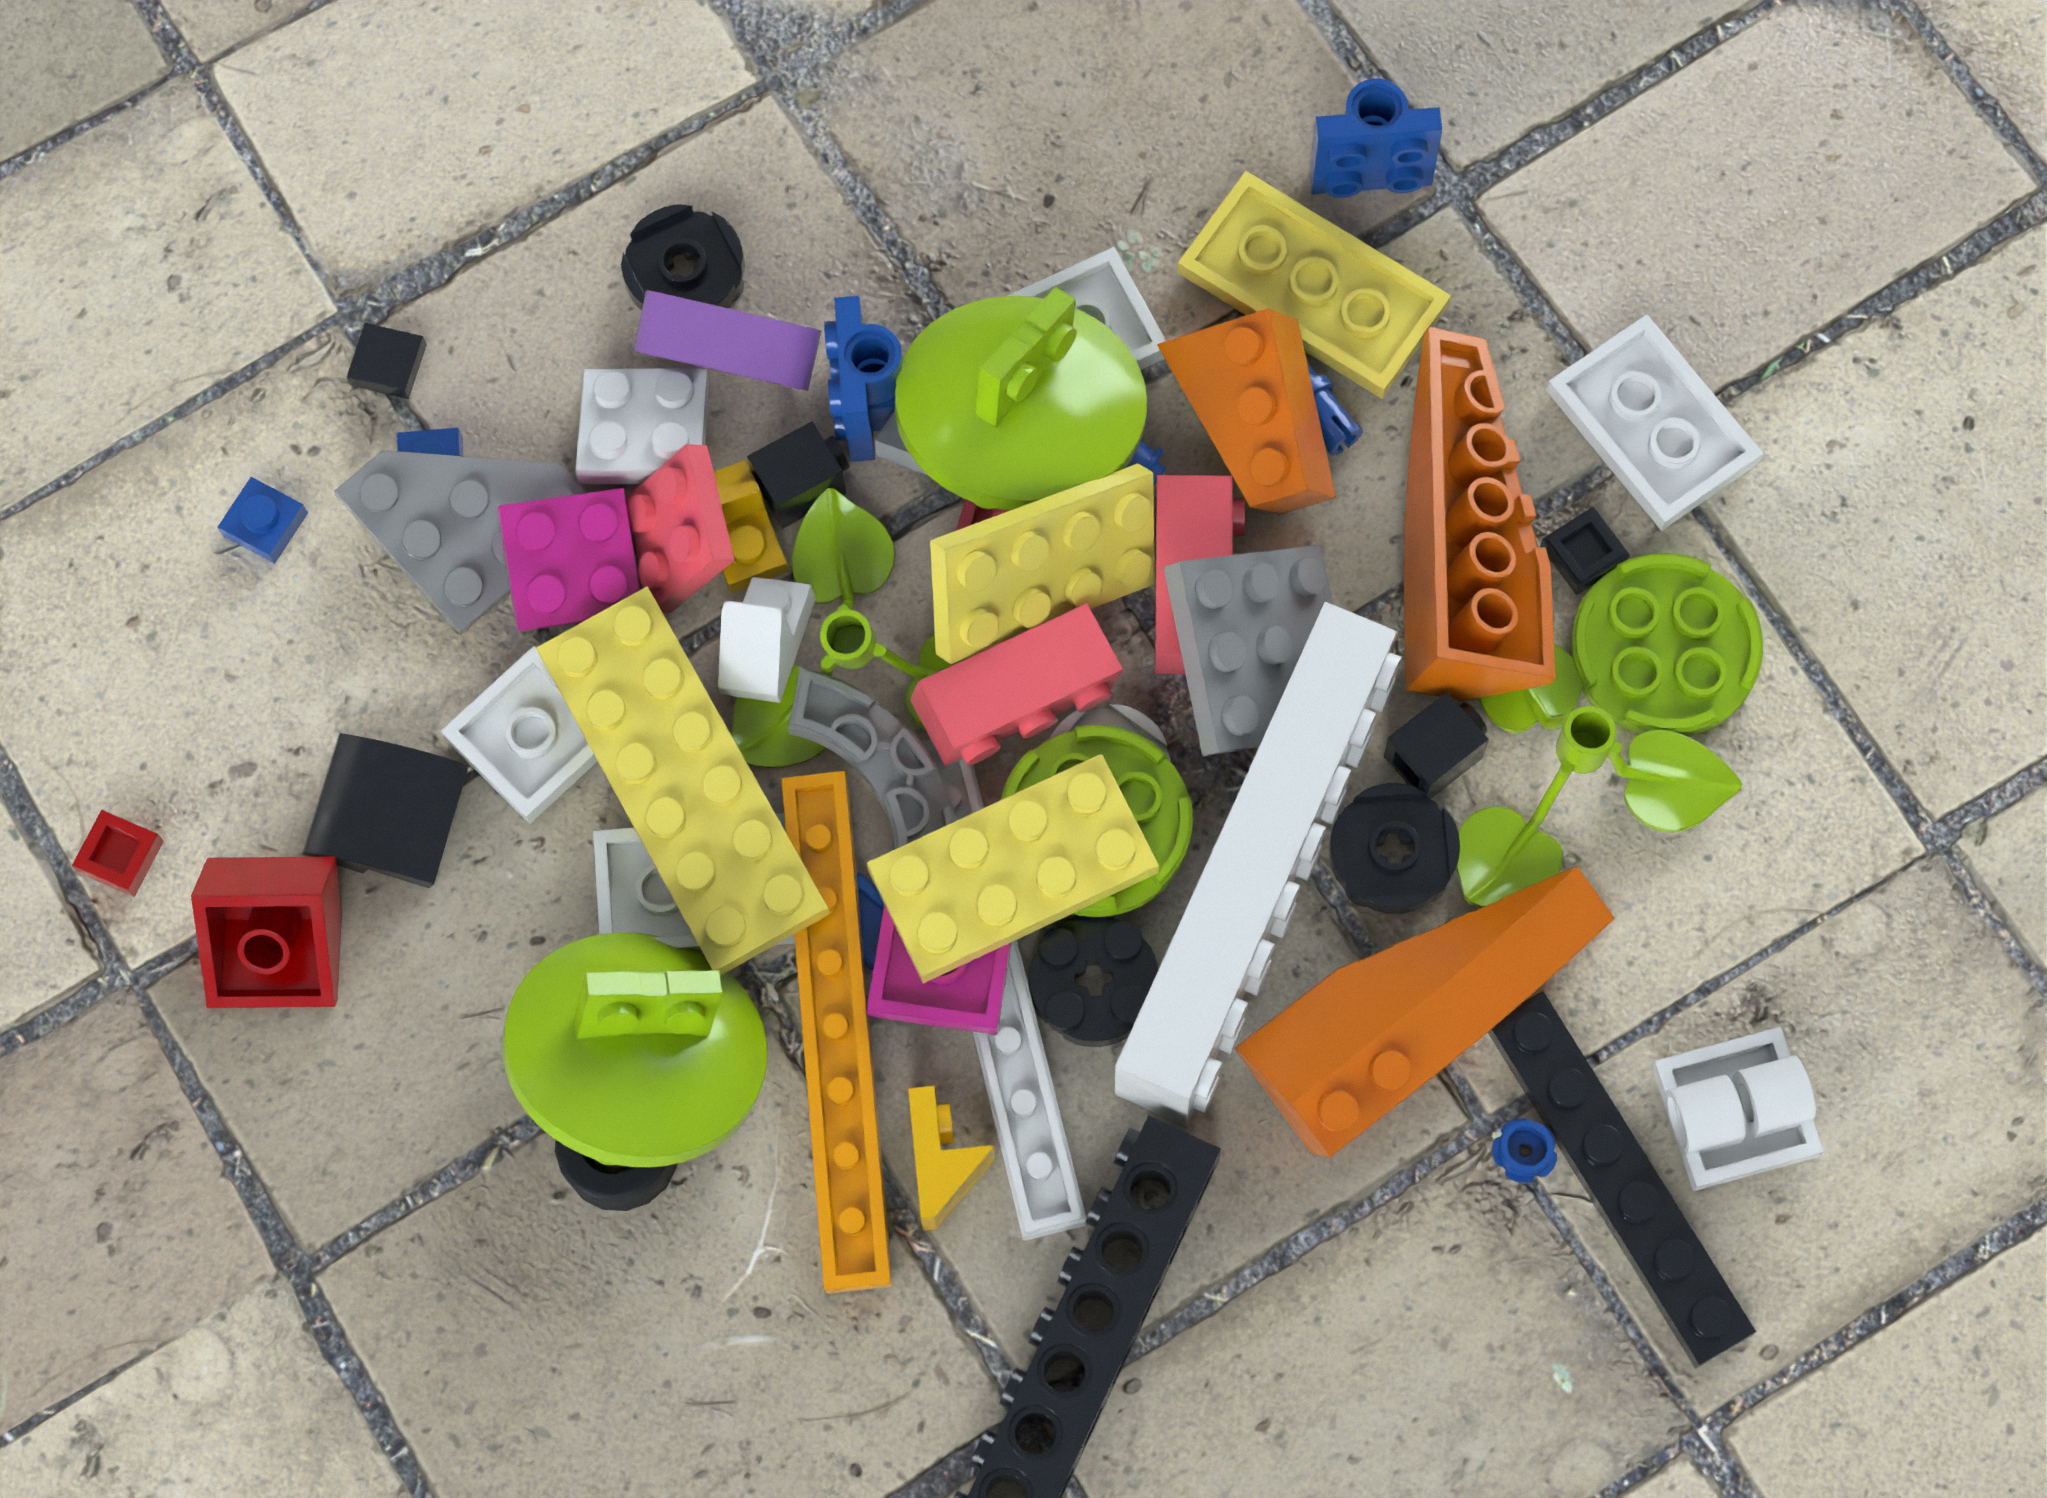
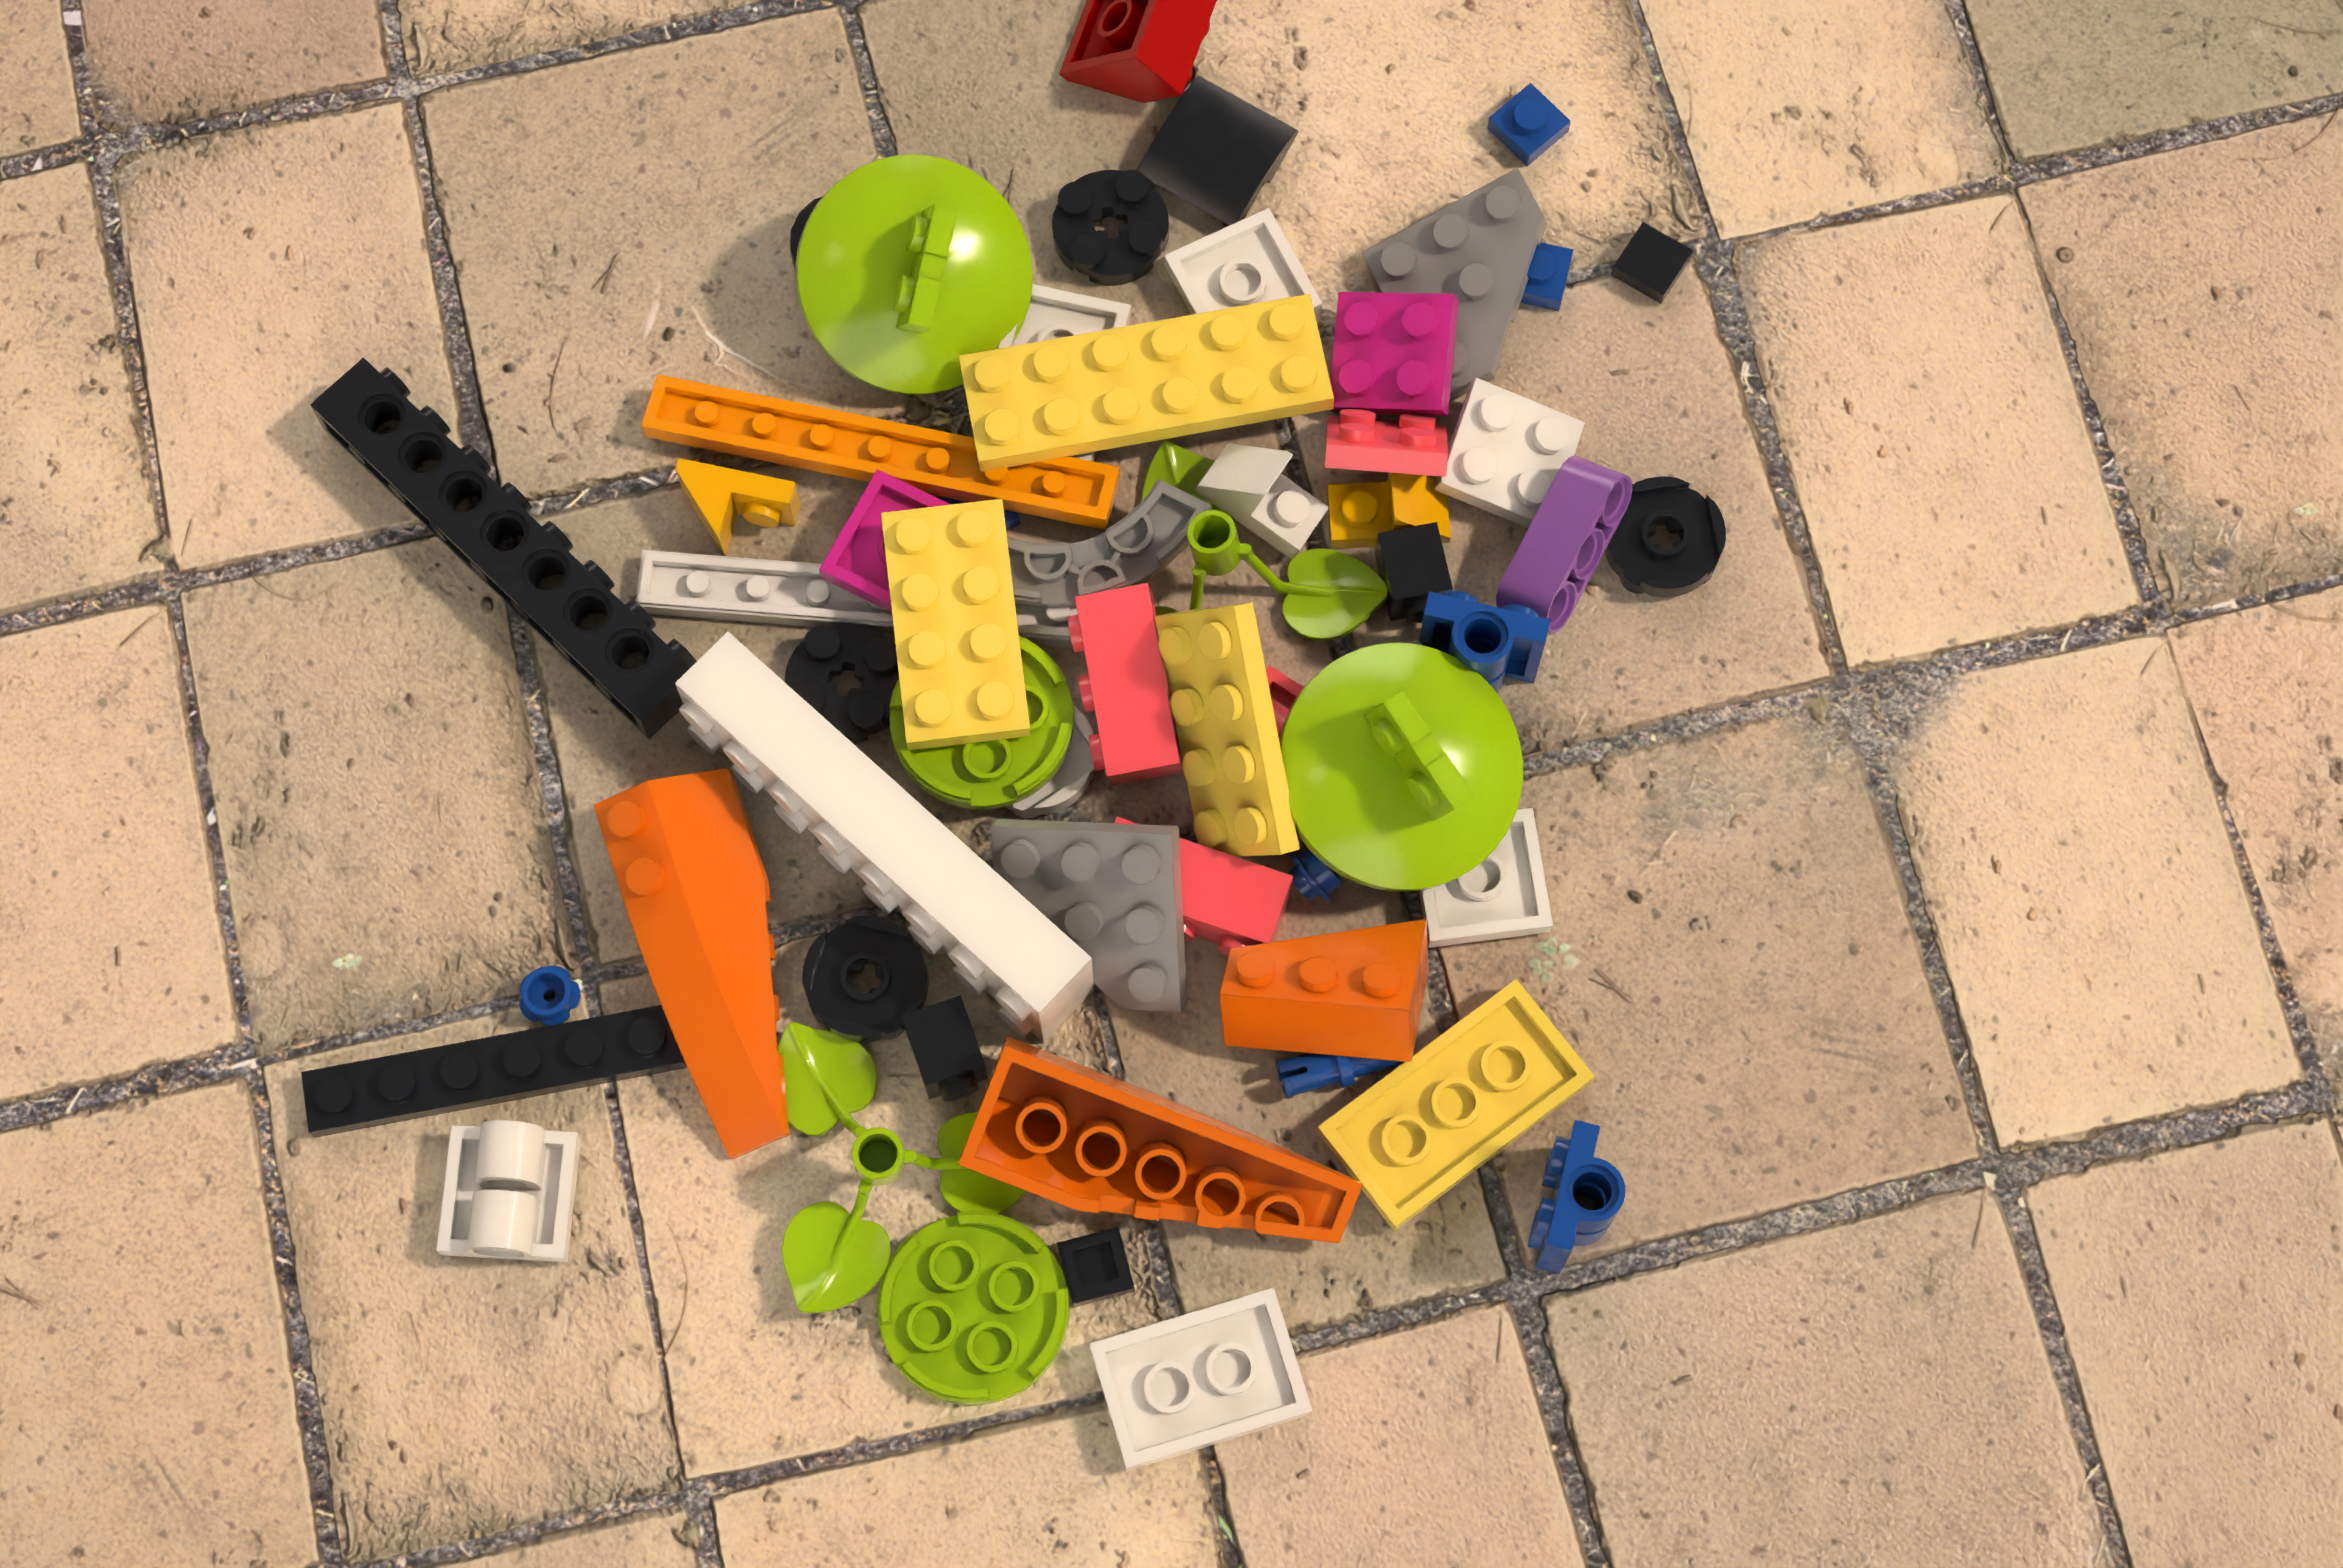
camera: 105 degrees right, 0 degrees up
(507, 855) = (1103, 195): none -> black plate

